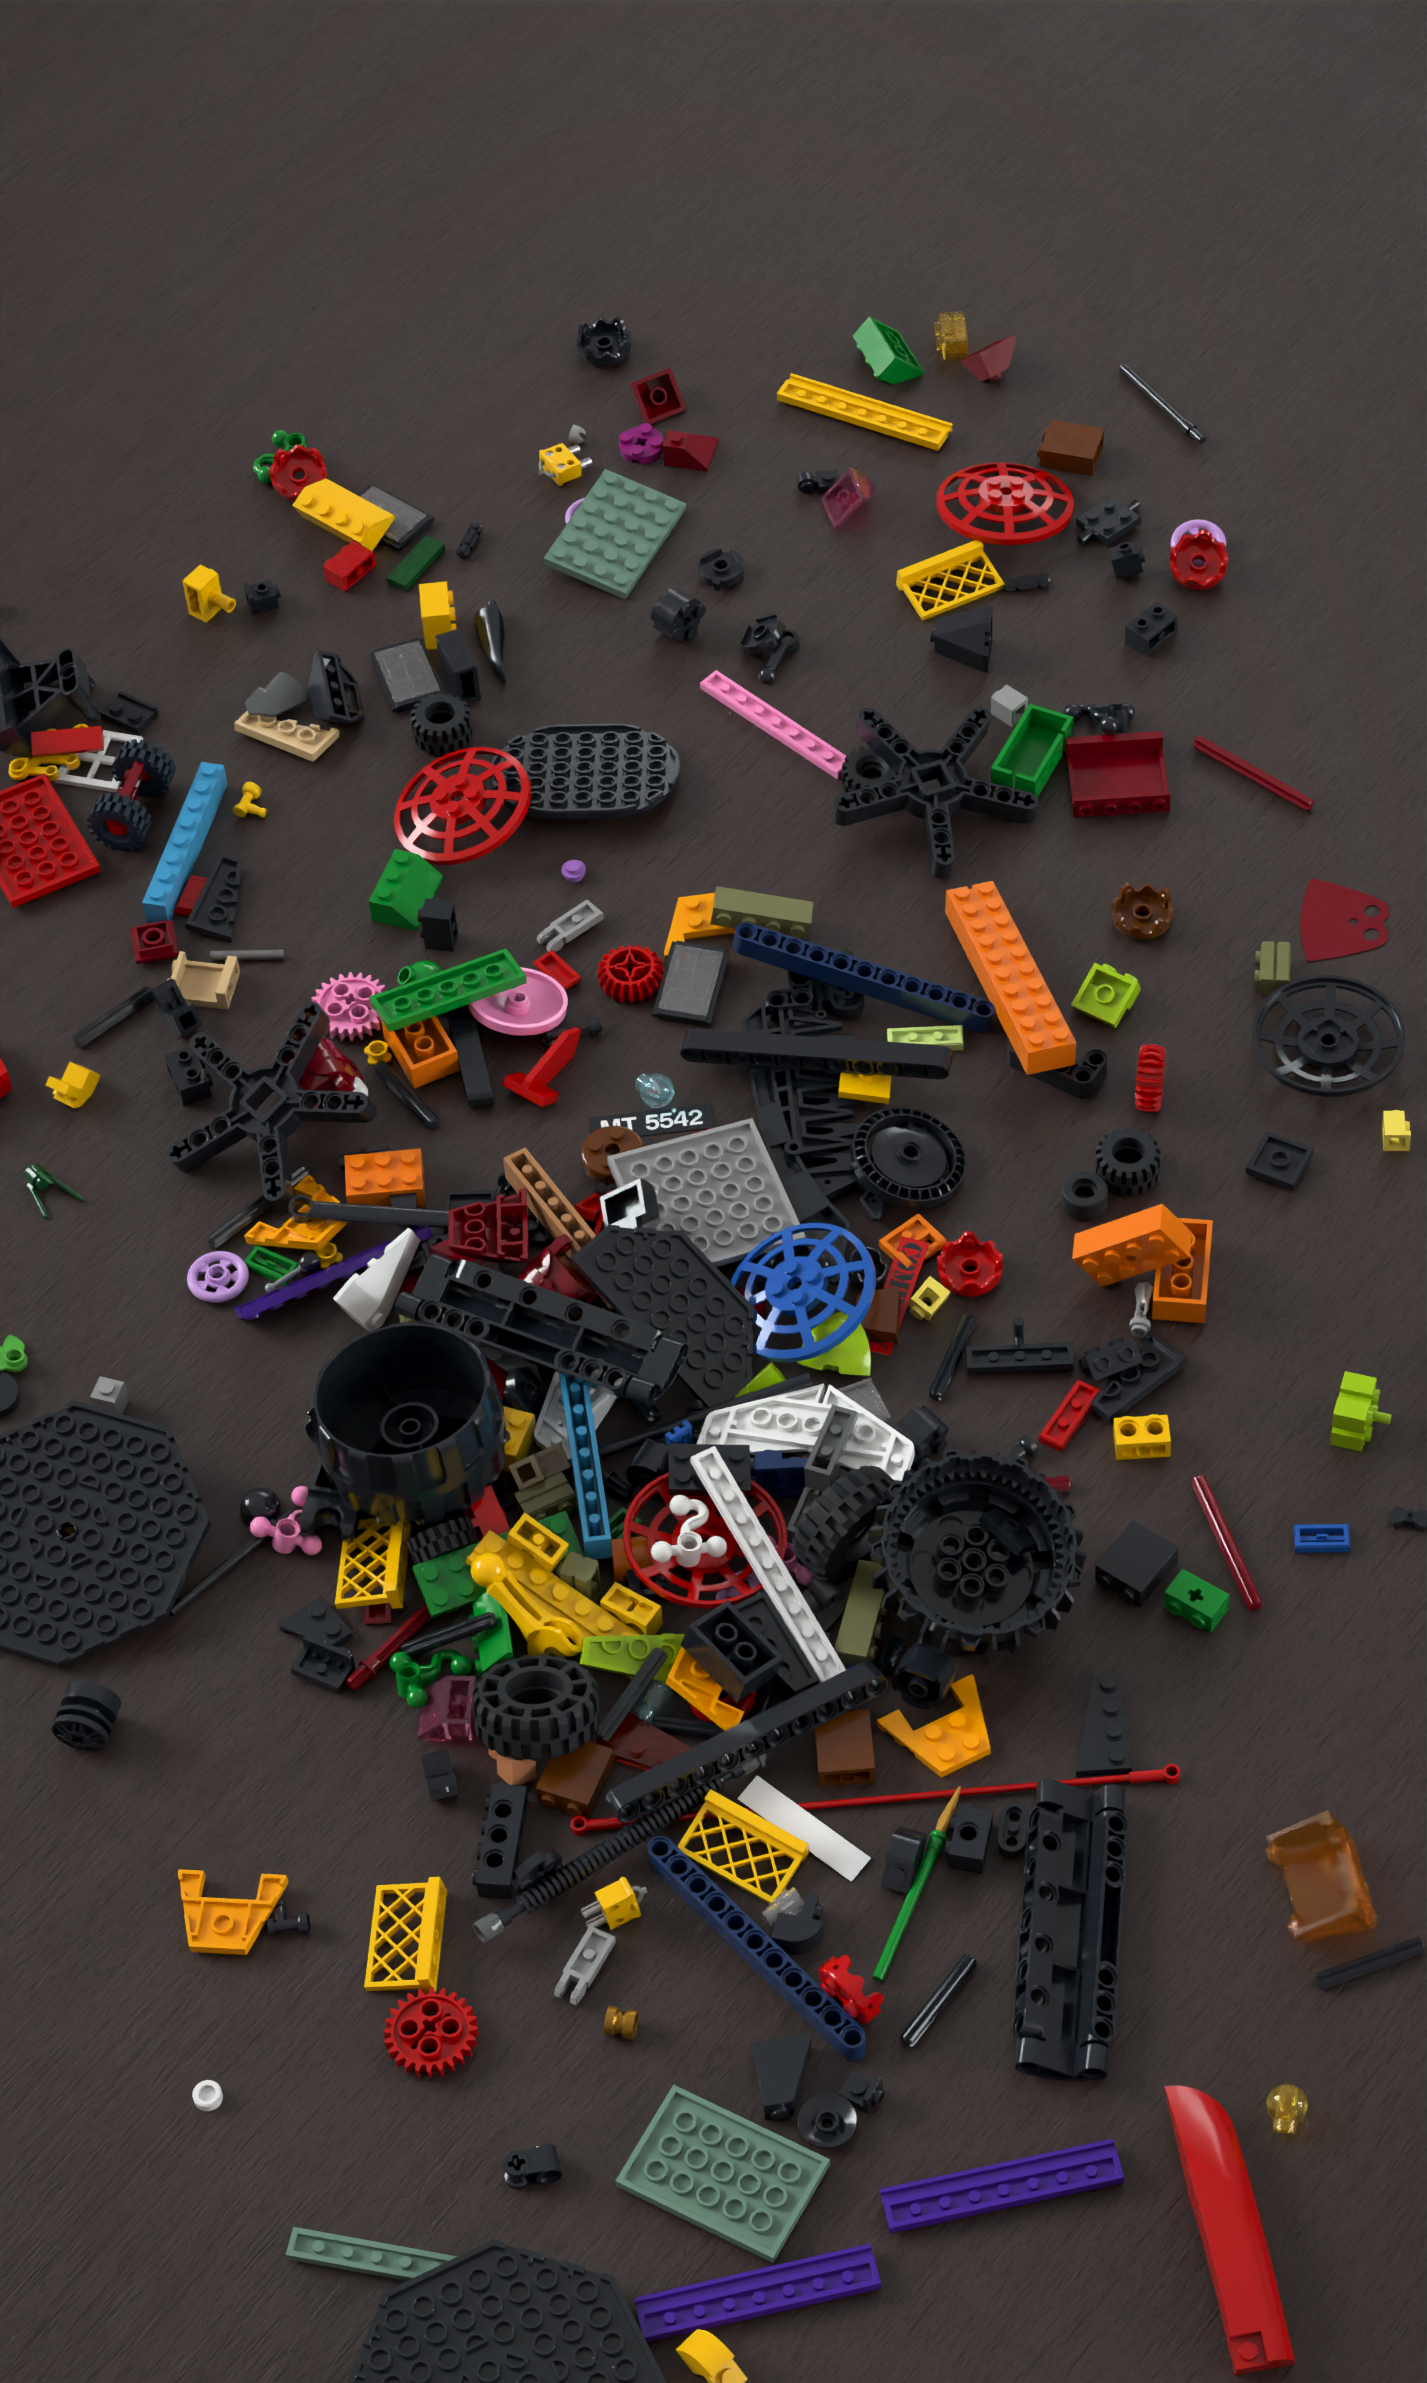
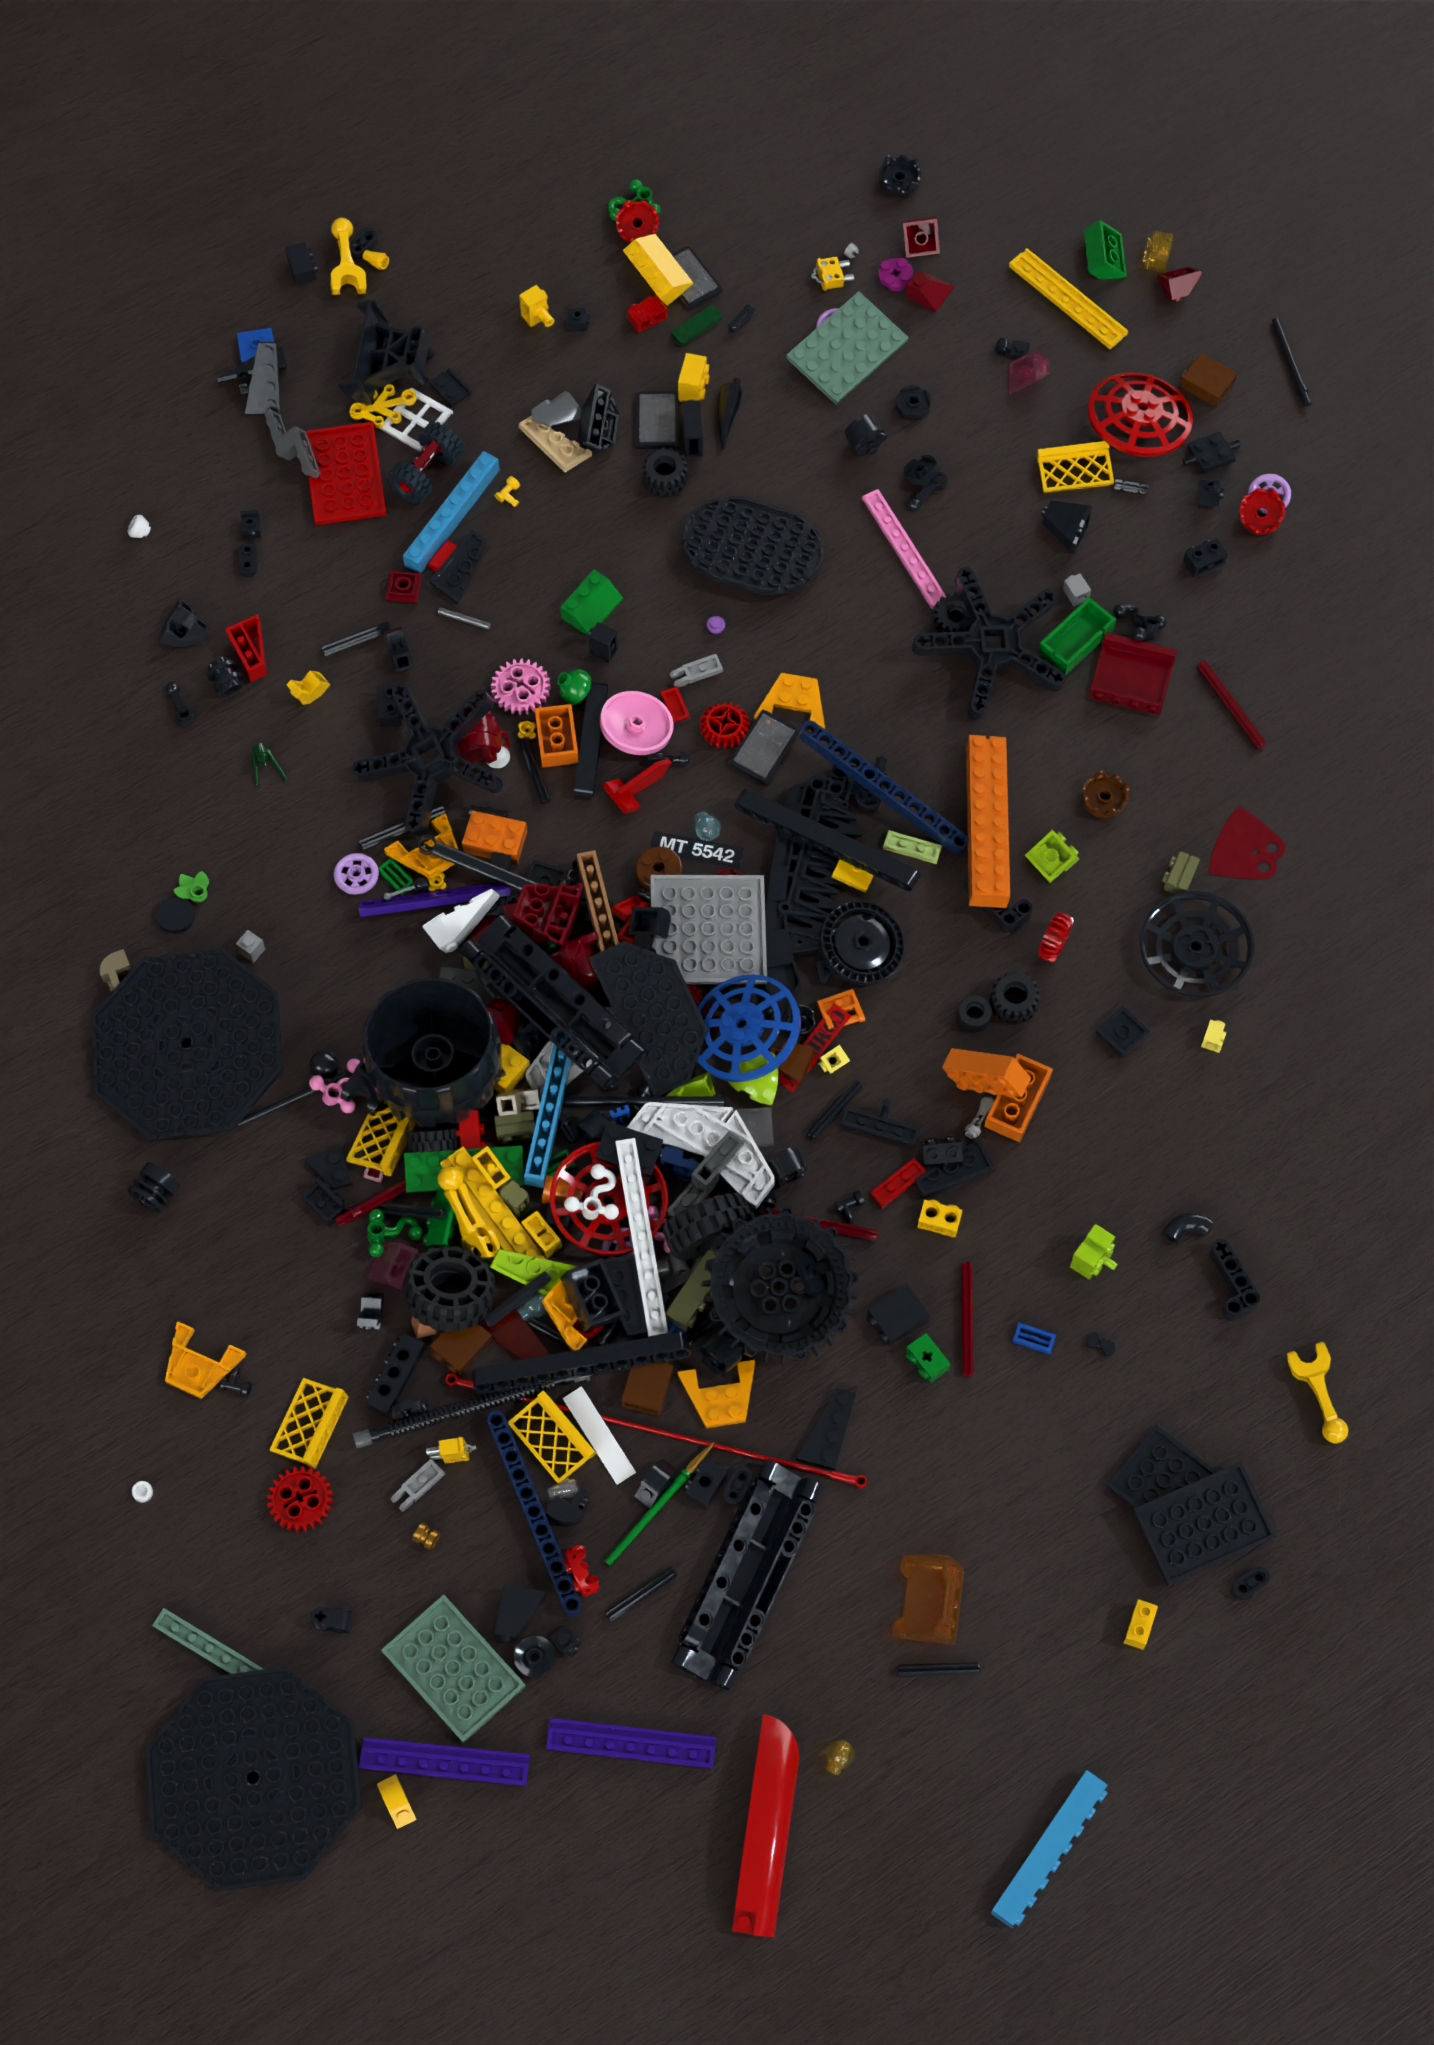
camera: 15 degrees right, 15 degrees up
(67, 741) = (396, 401): red tile -> none
(206, 983) = (427, 631): tan panel -> none
(448, 990) = (587, 702): green plate -> none
(469, 807) = (657, 552): red dish -> none
(769, 911) = (832, 708): olive brick -> none
(970, 1252) = (876, 1031): red plate -> none

